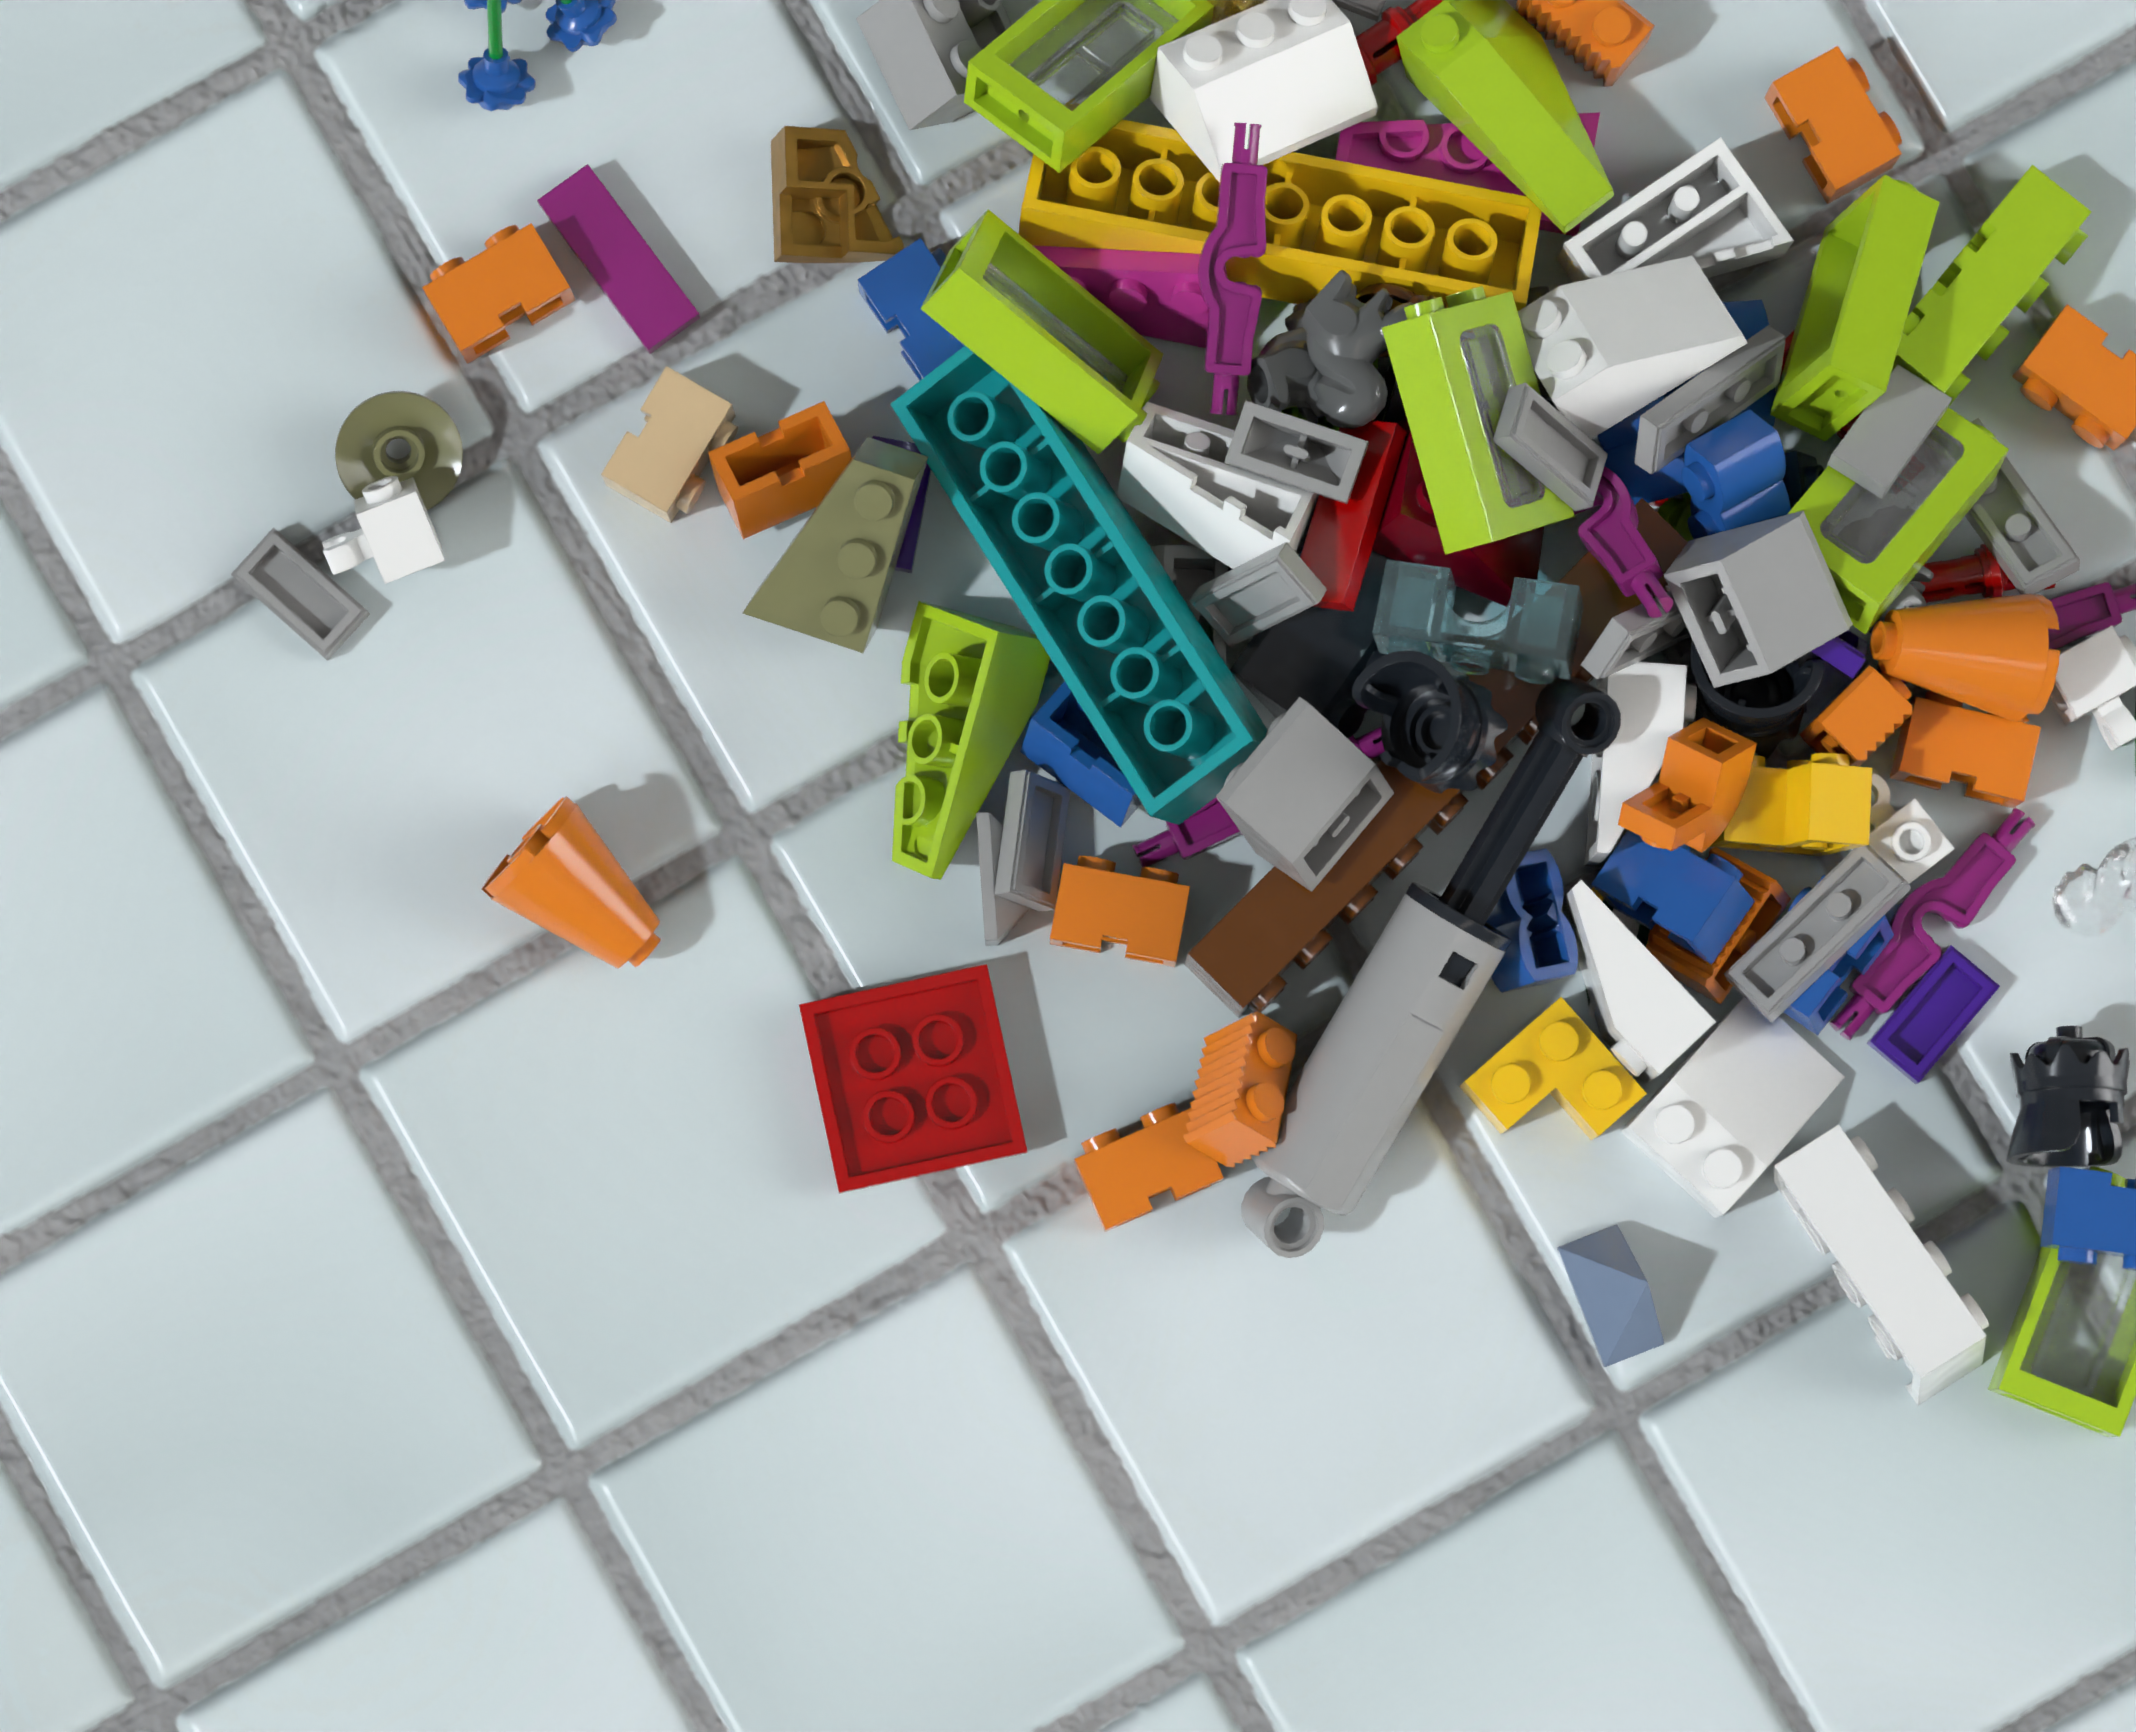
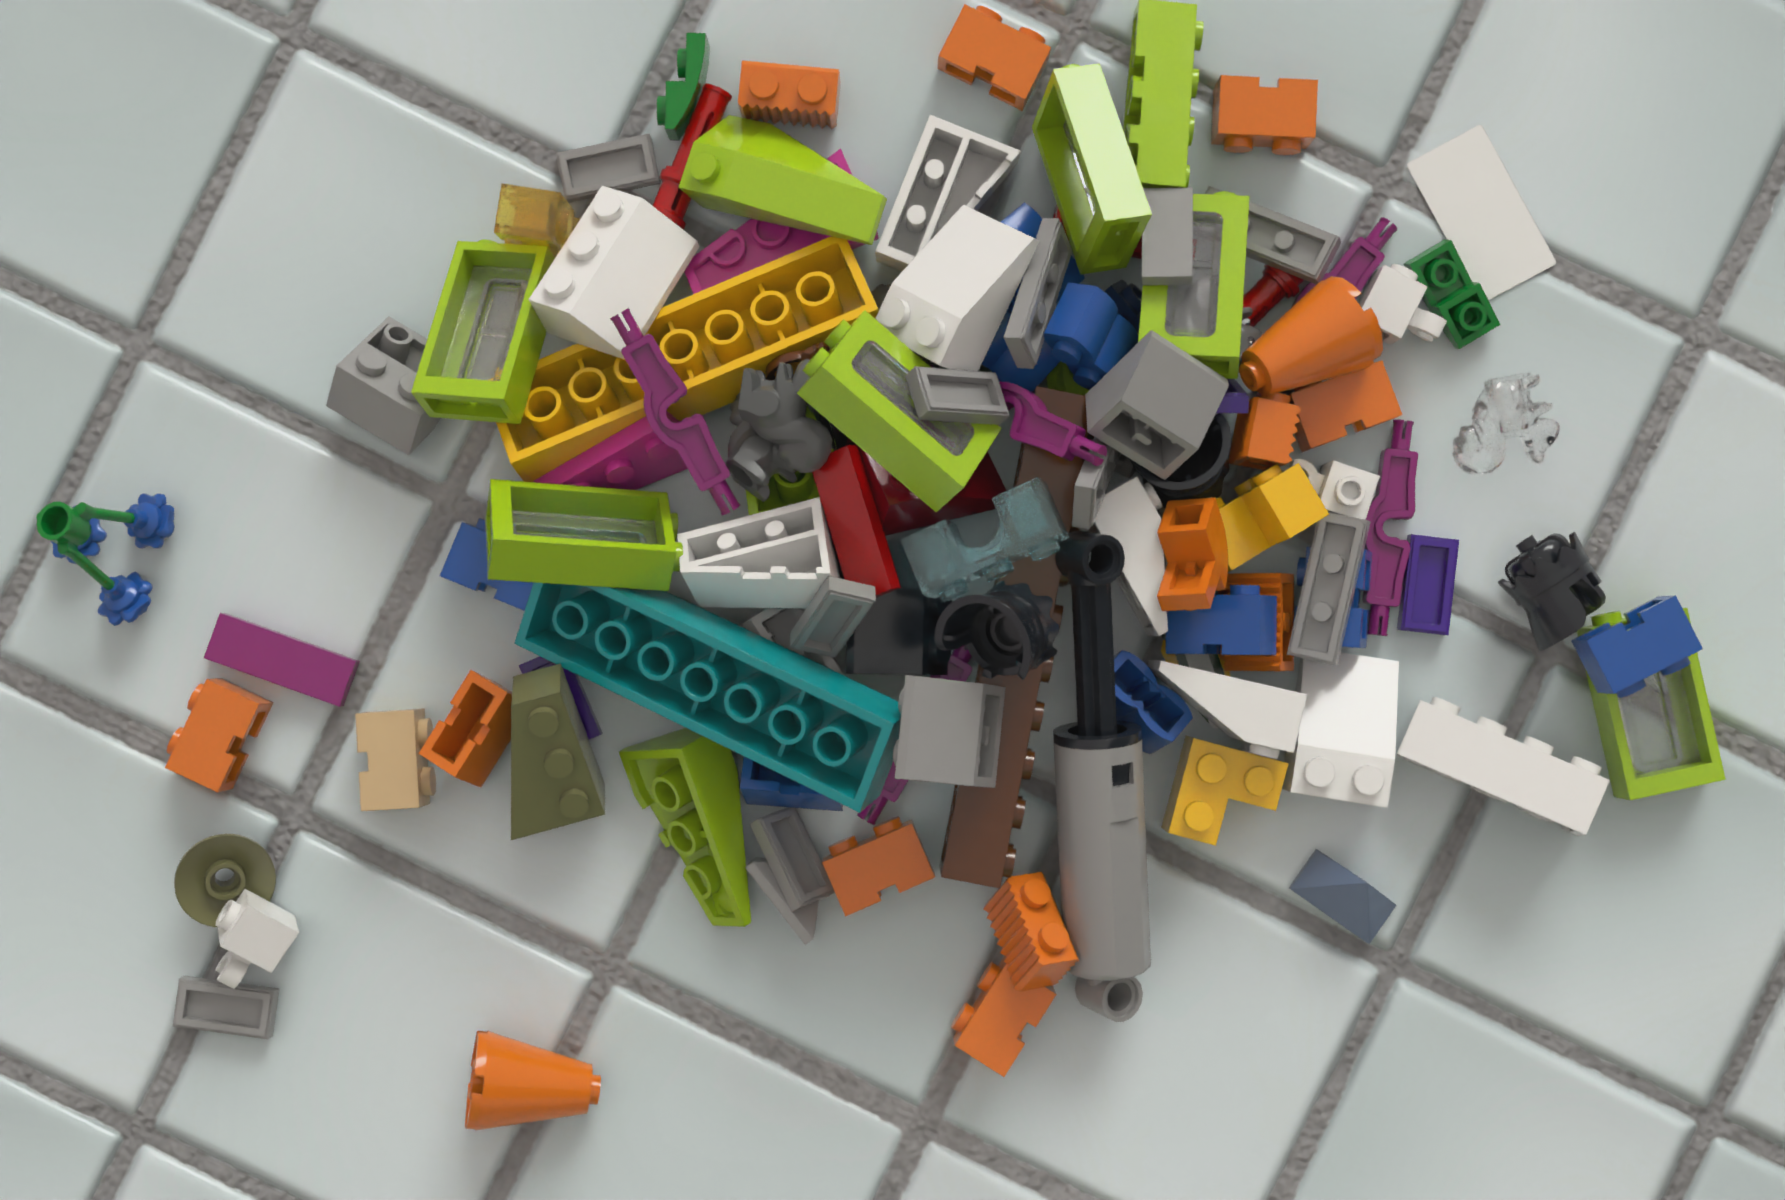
camera: 25 degrees left, 5 degrees up
(824, 202) = (387, 535): pearl gold slope -> none
(913, 1078) = (818, 1056): red plate -> none
(1296, 452) = (795, 508): light grey slope -> none

